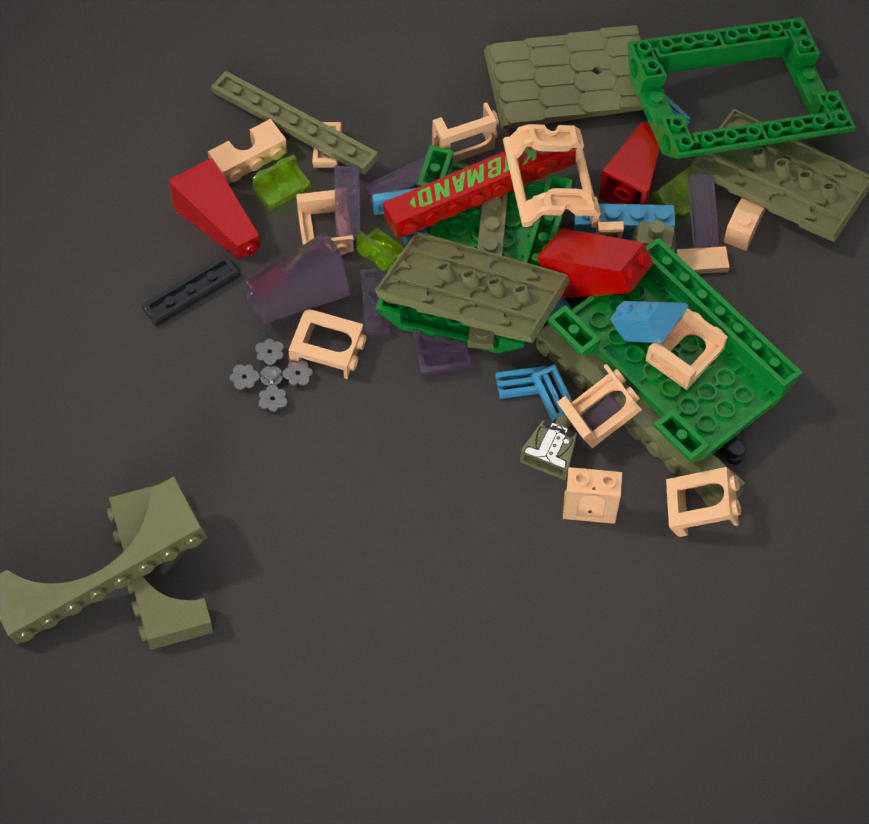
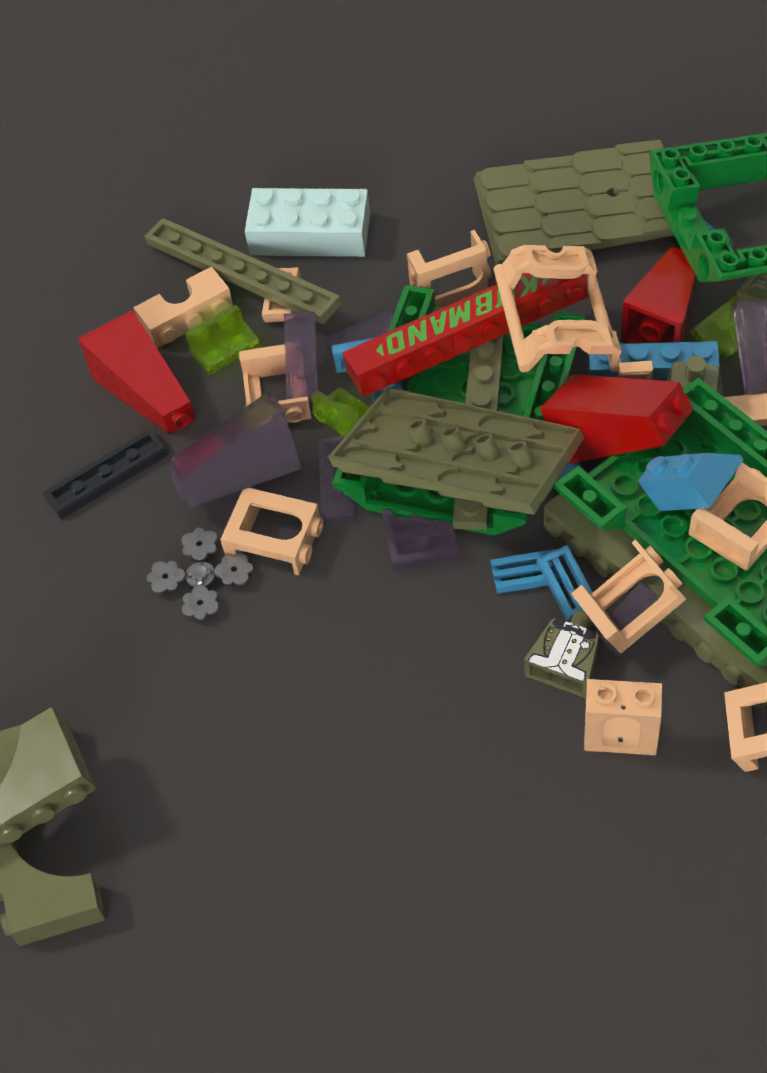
camera: 10 degrees right, 5 degrees down
(347, 81) = (308, 222): none -> light aqua brick

